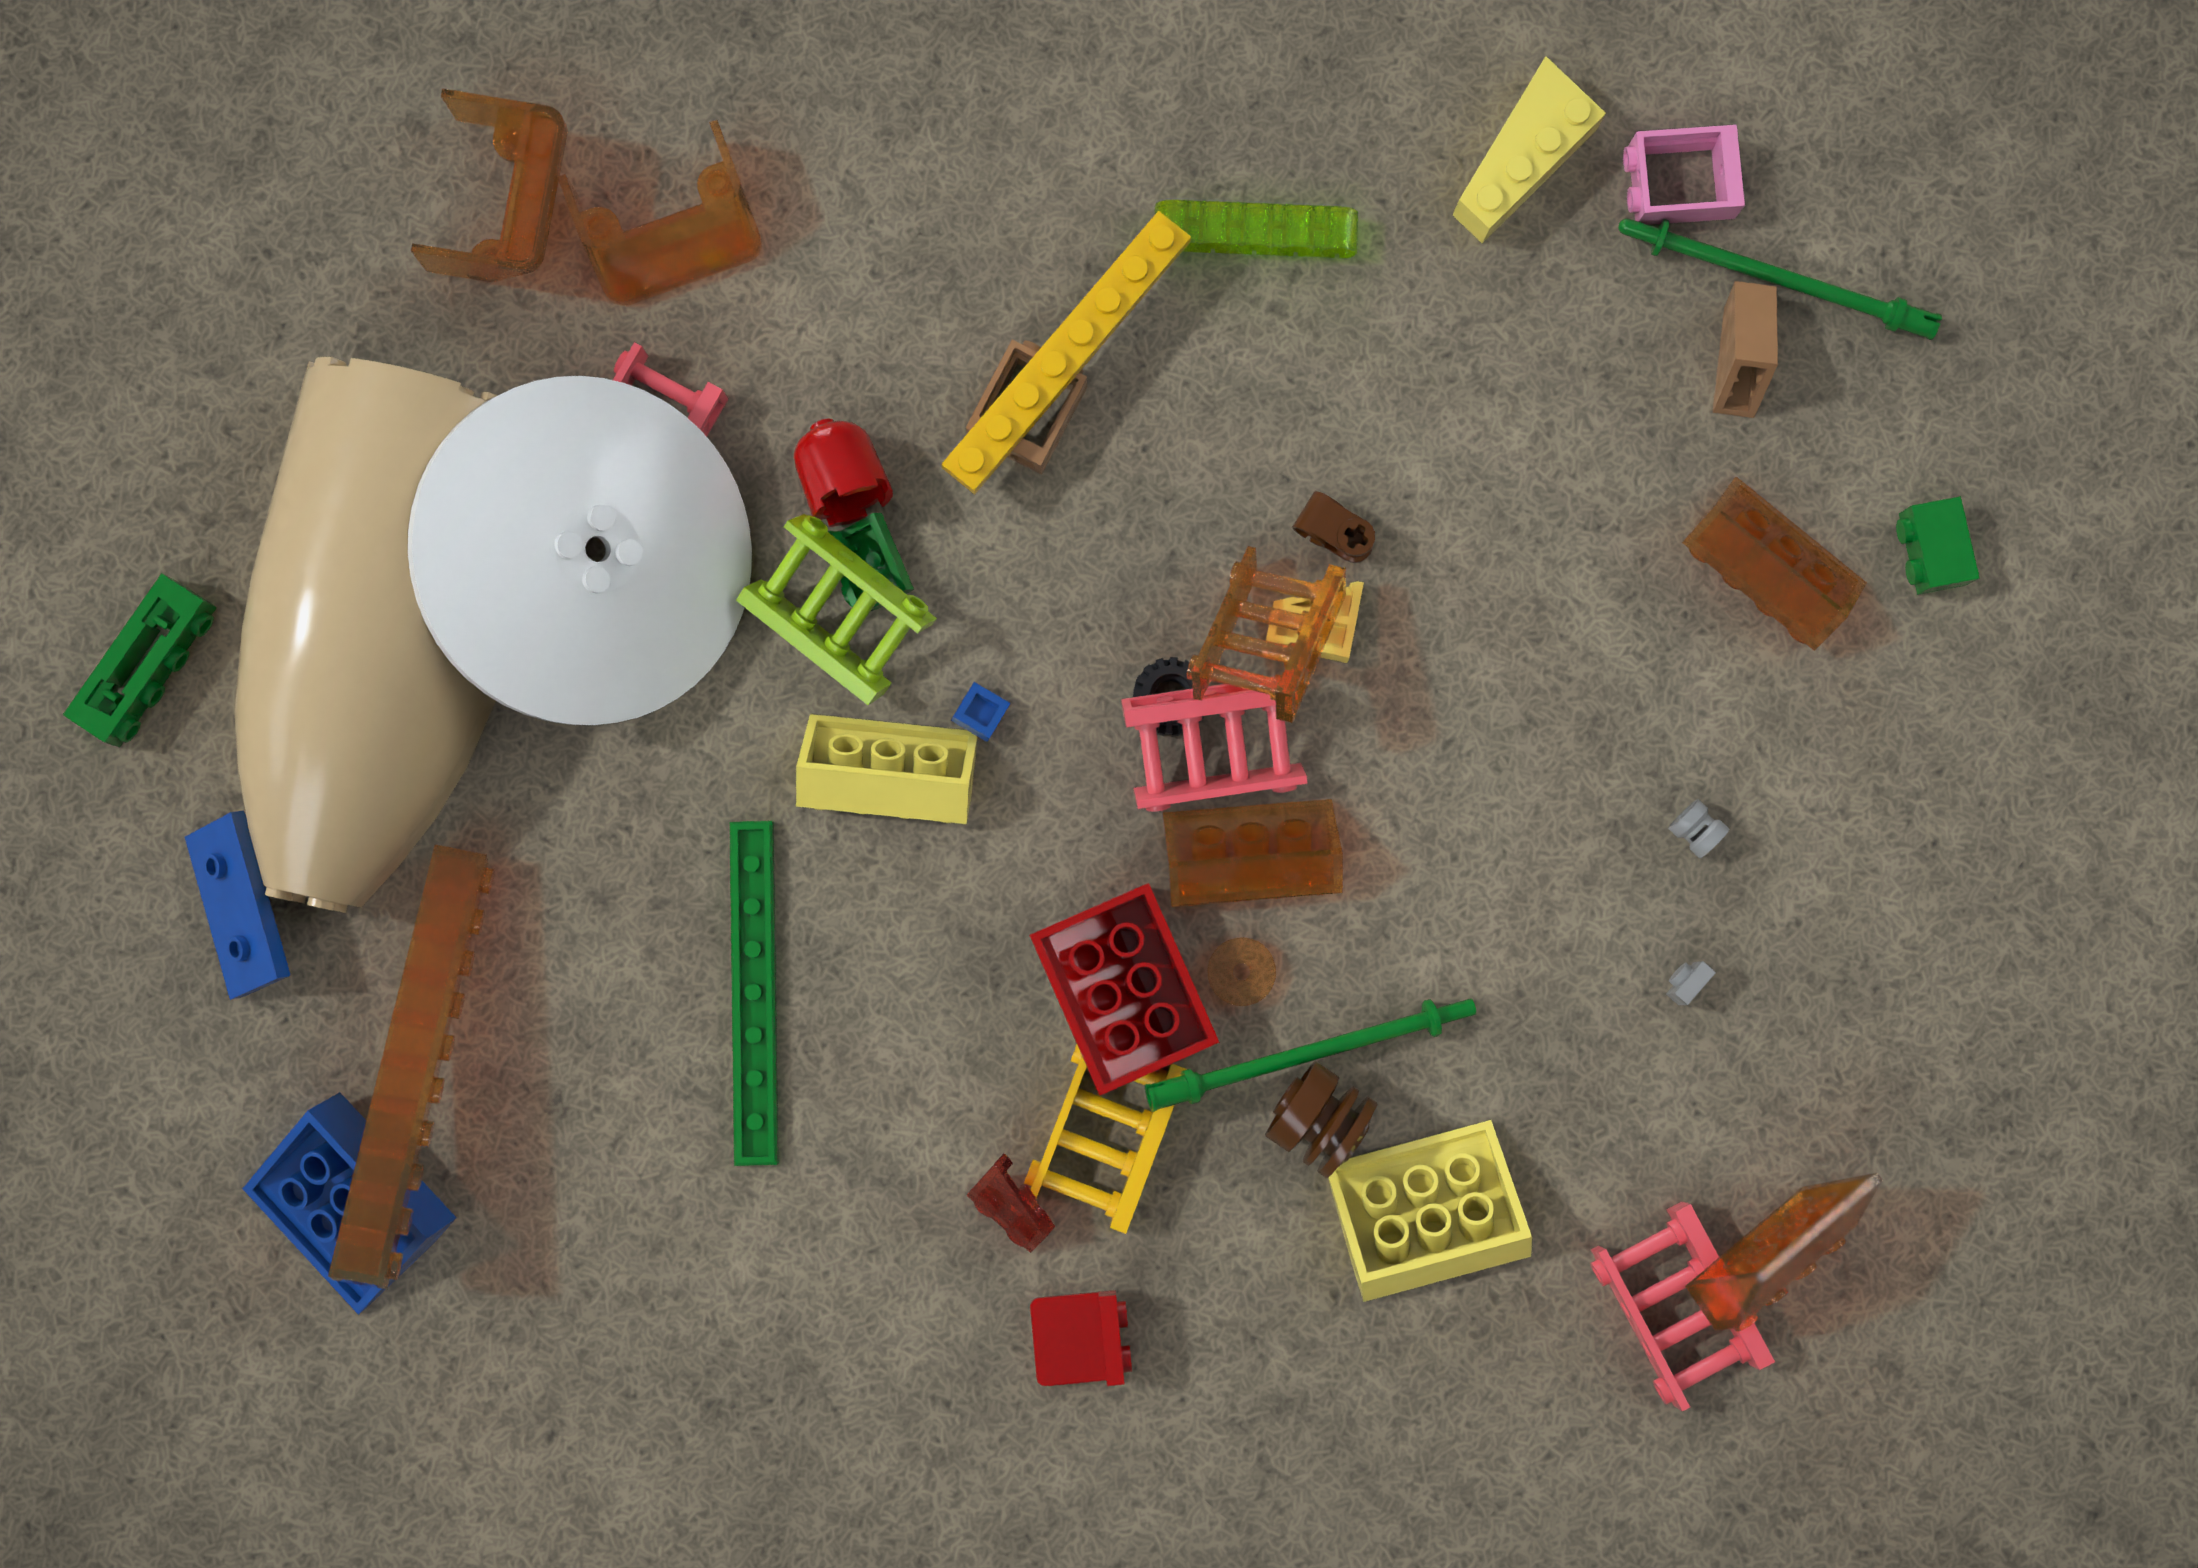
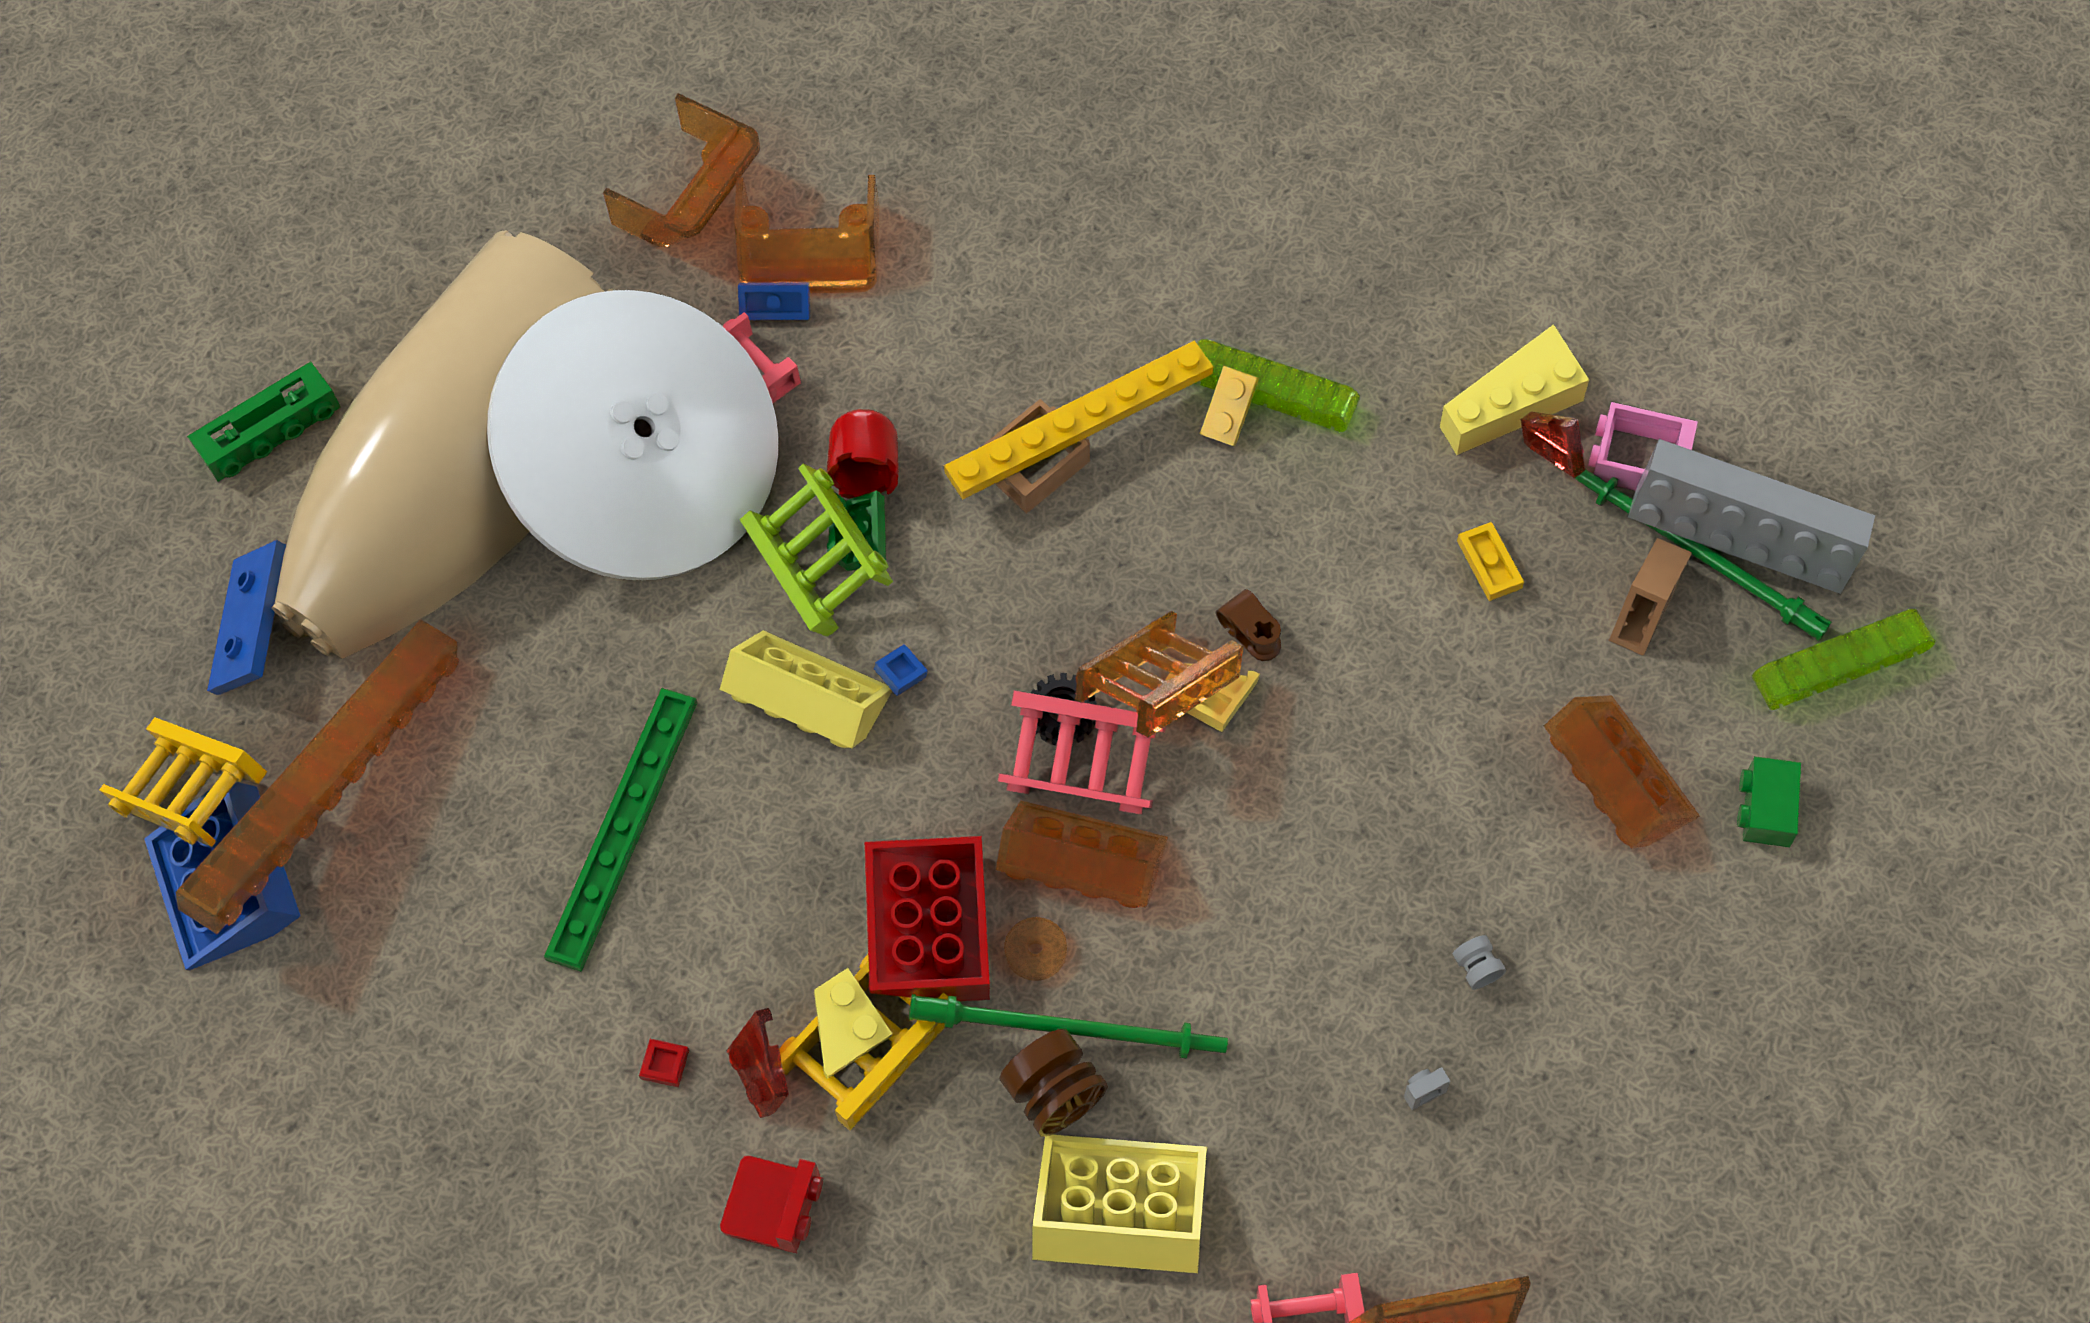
camera: 25 degrees right, 20 degrees down
(284, 1092) = (190, 748): none -> yellow fence
(658, 310) = (775, 300): none -> blue plate
(907, 1231) = (664, 1063): none -> red tile
(1086, 1133) = (846, 1022): none -> light yellow wing
(1221, 273) = (1229, 406): none -> yellow plate
(1562, 364) = (1490, 561): none -> yellow plate
(1590, 199) = (1555, 440): none -> clear red wing
(1829, 226) = (1751, 516): none -> light grey brick
(1964, 354) = (1843, 657): none -> clear neon green beam

